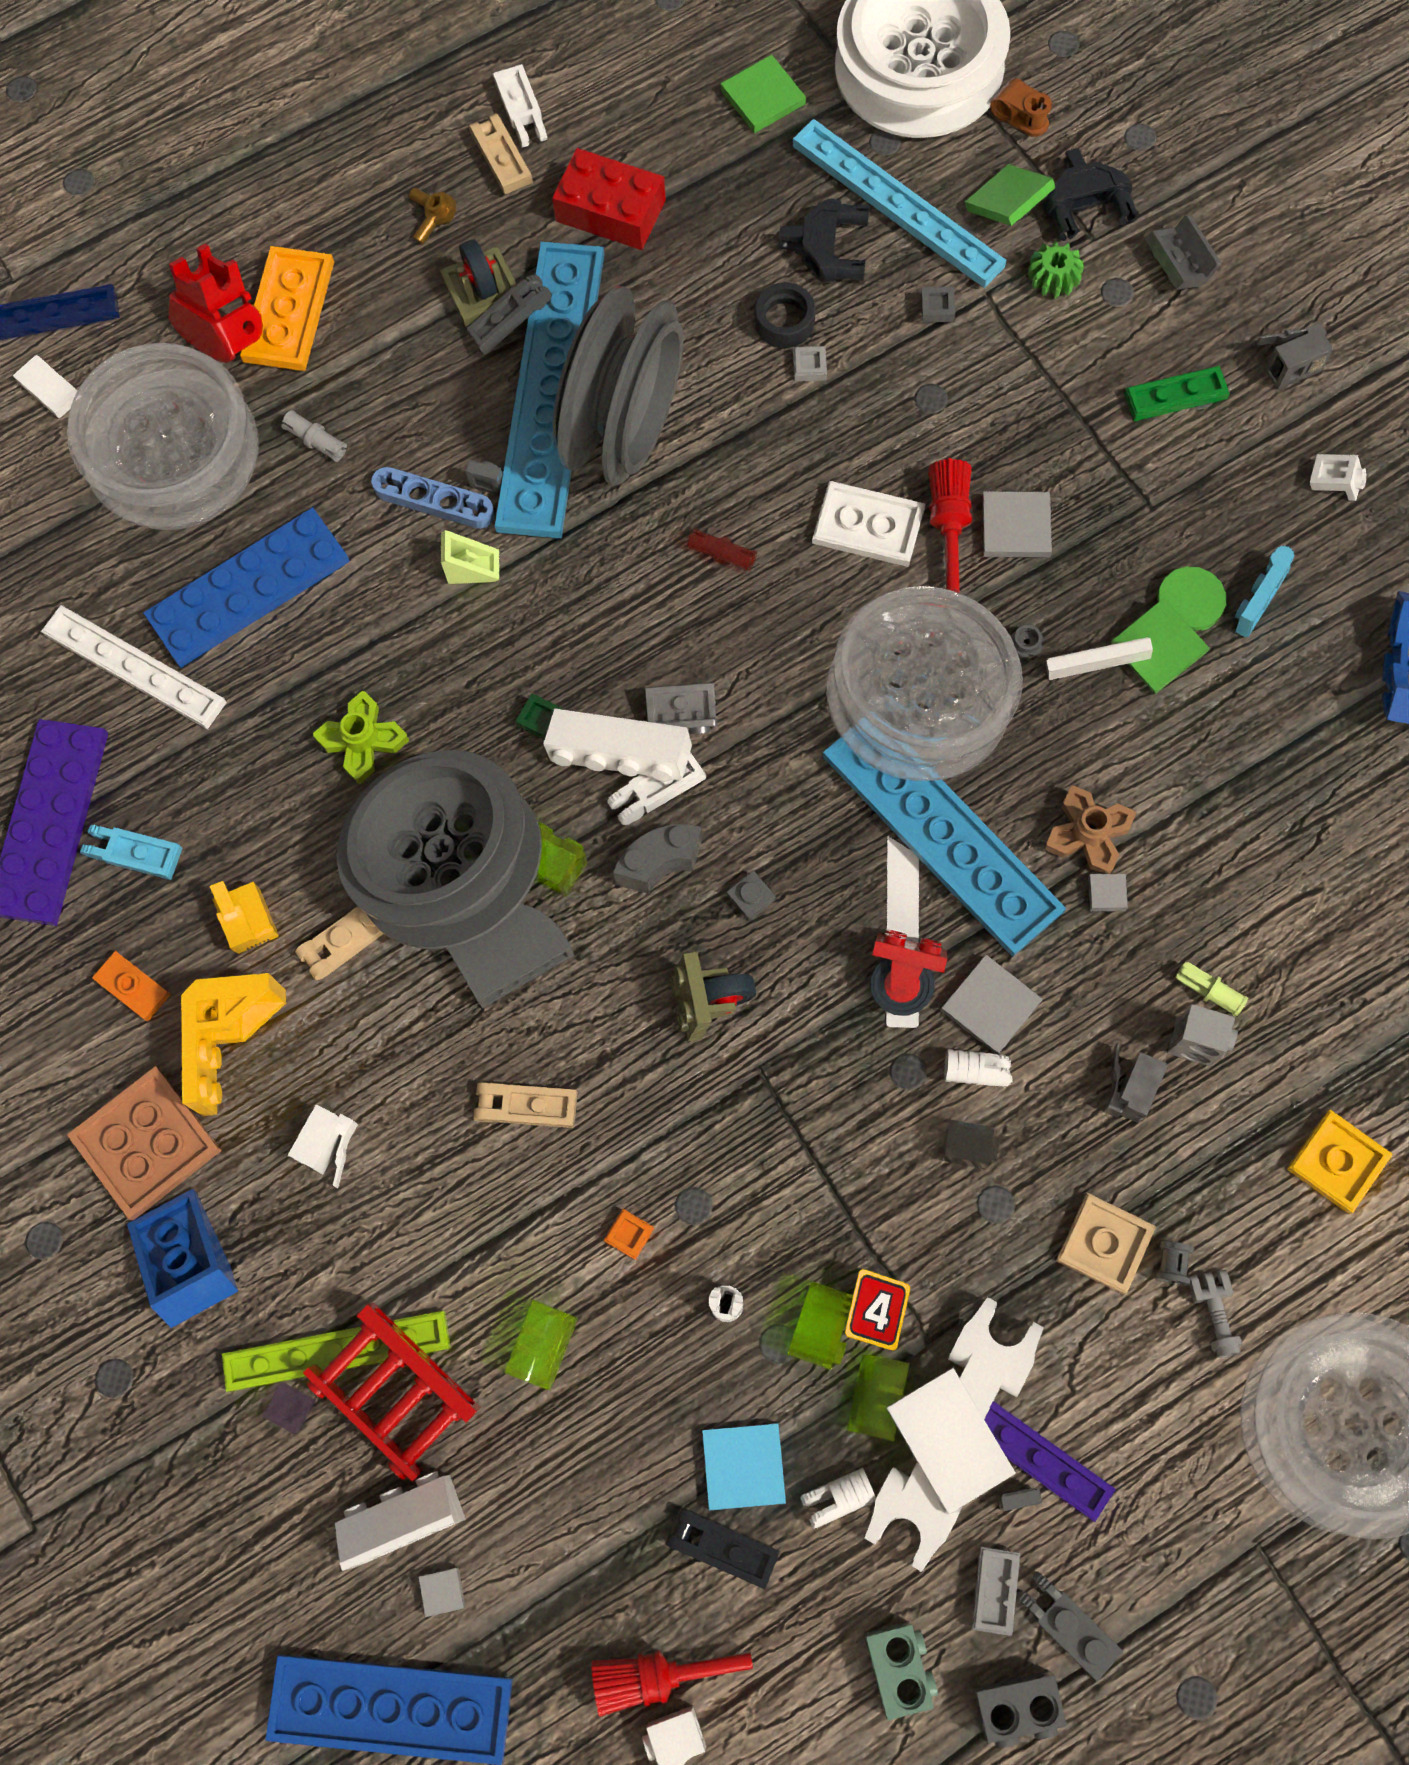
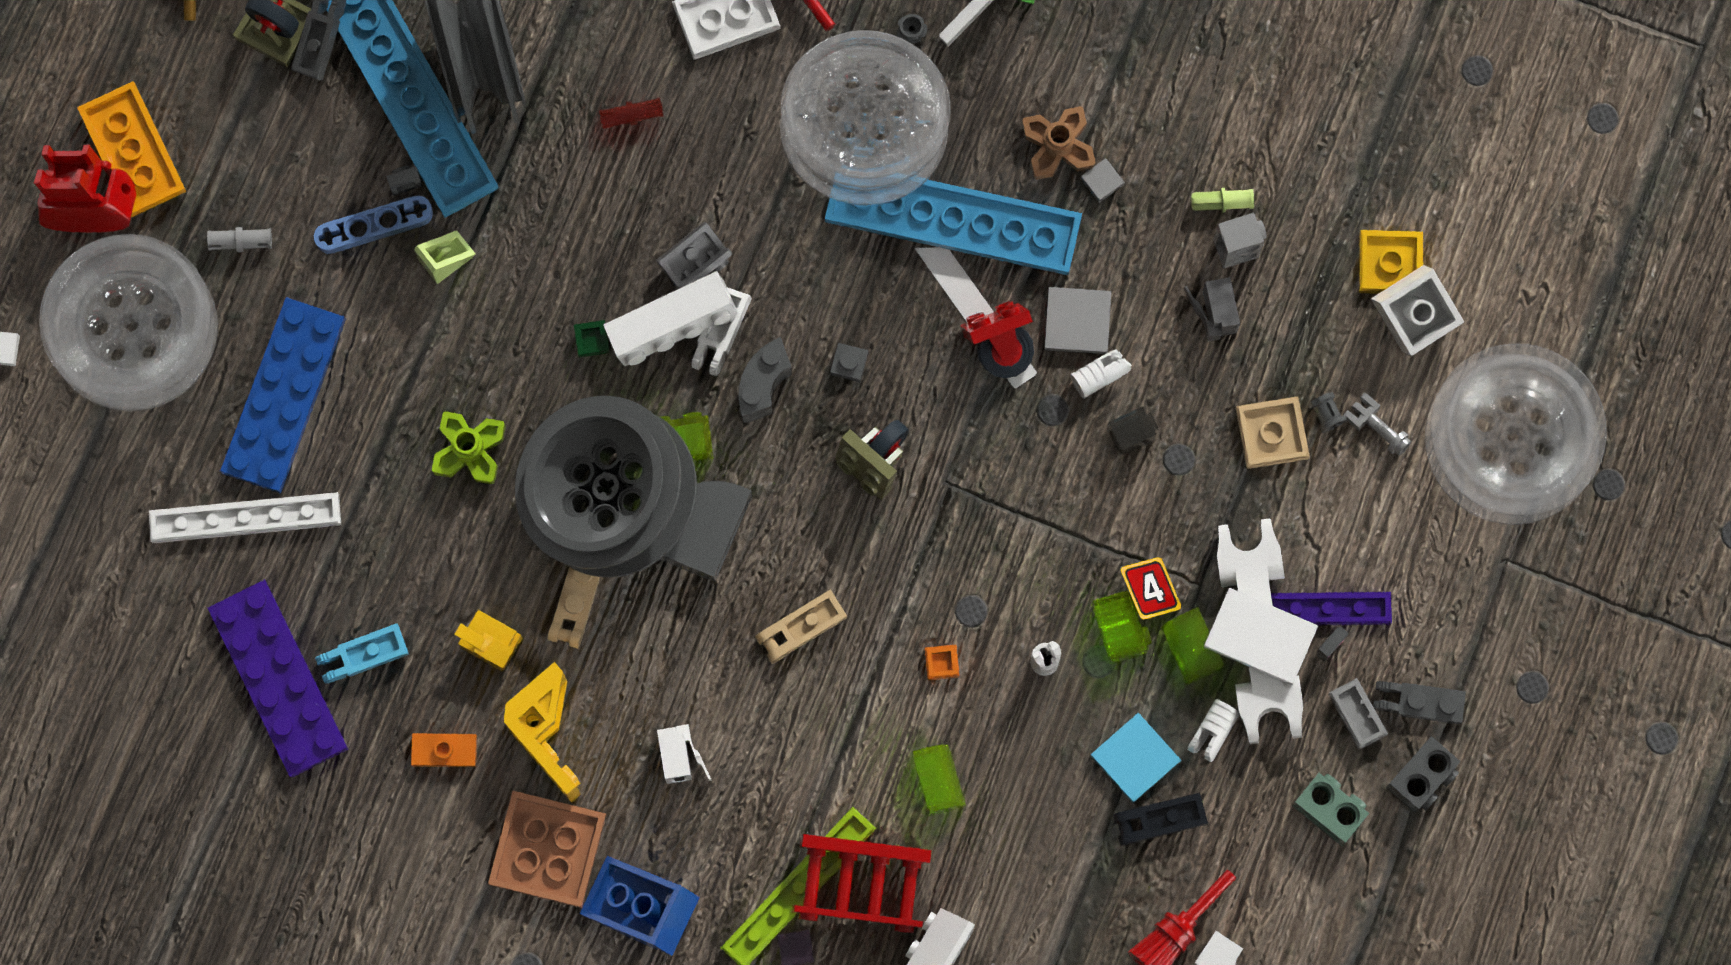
camera: 40 degrees left, 5 degrees up
(1337, 1227) = (1417, 310): none -> white brick

